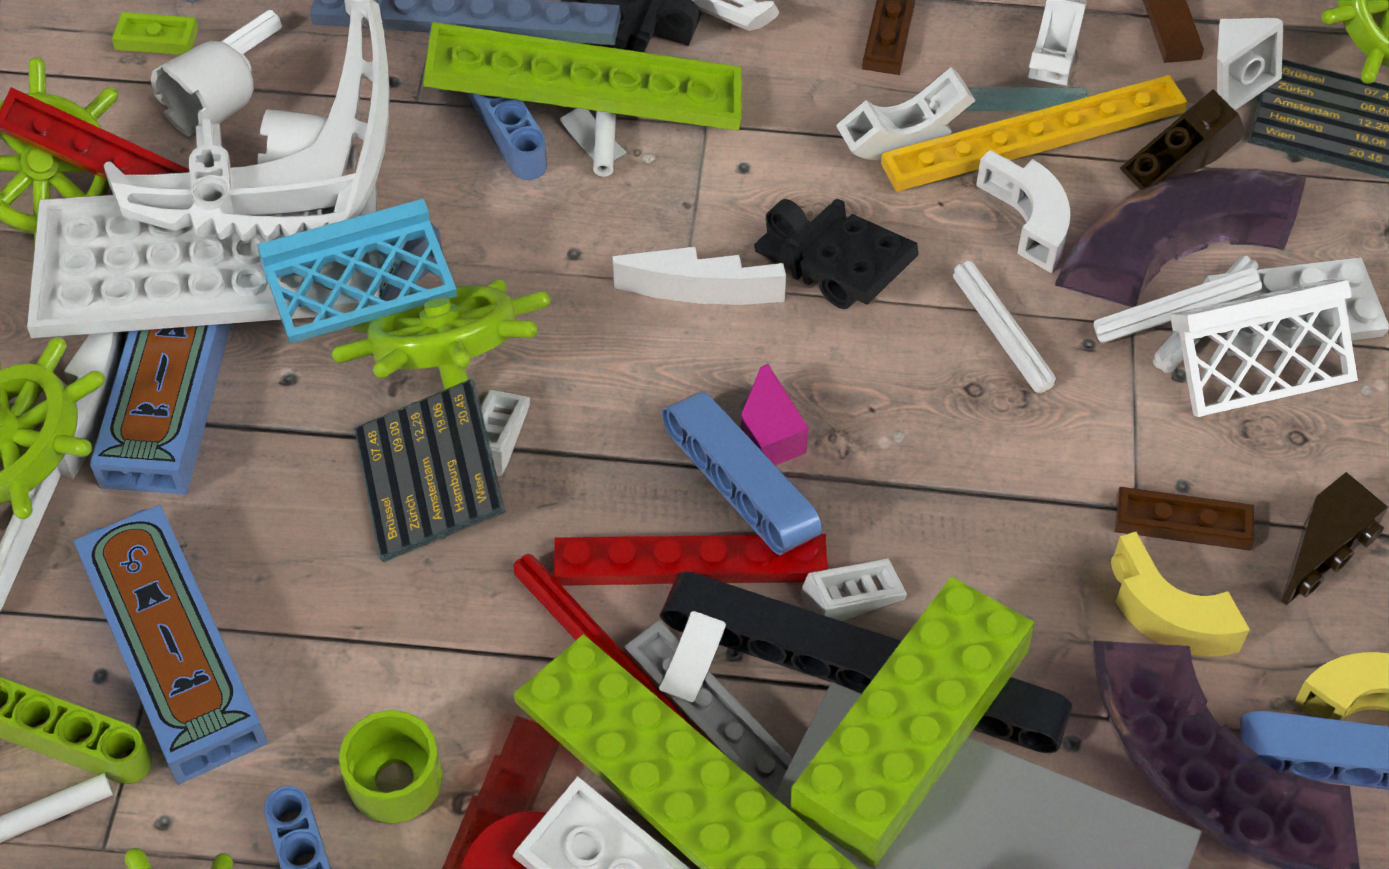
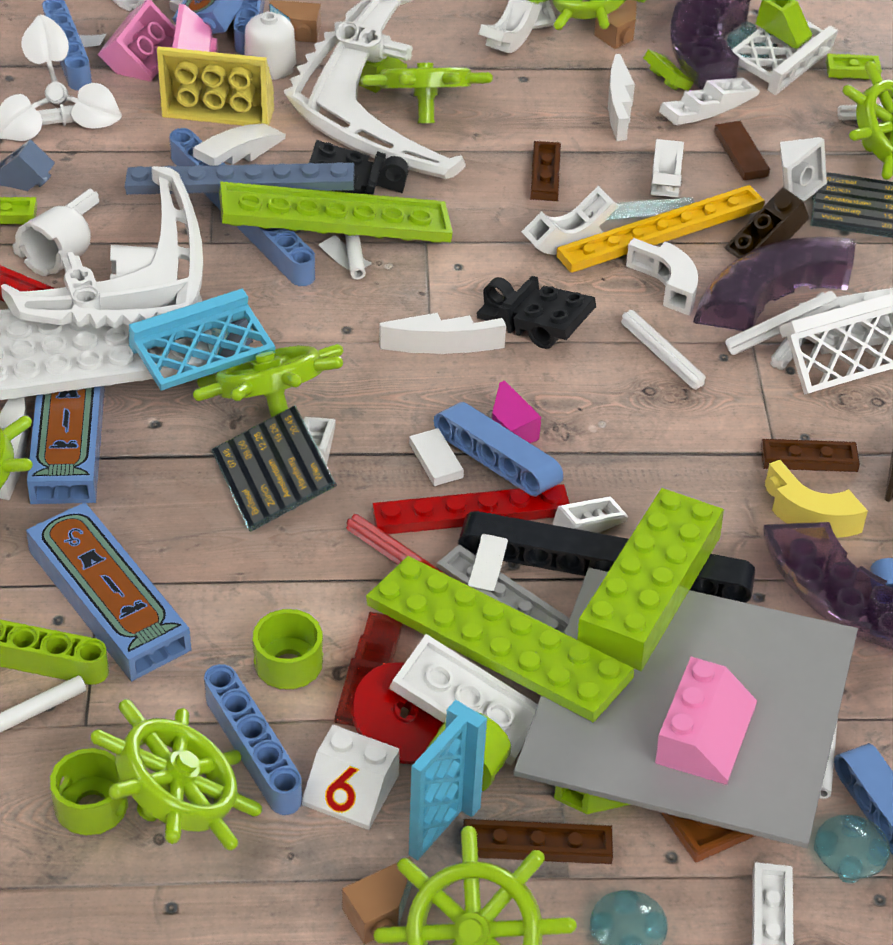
camera: 10 degrees left, 10 degrees down
(657, 470) = (436, 457): none -> white tile

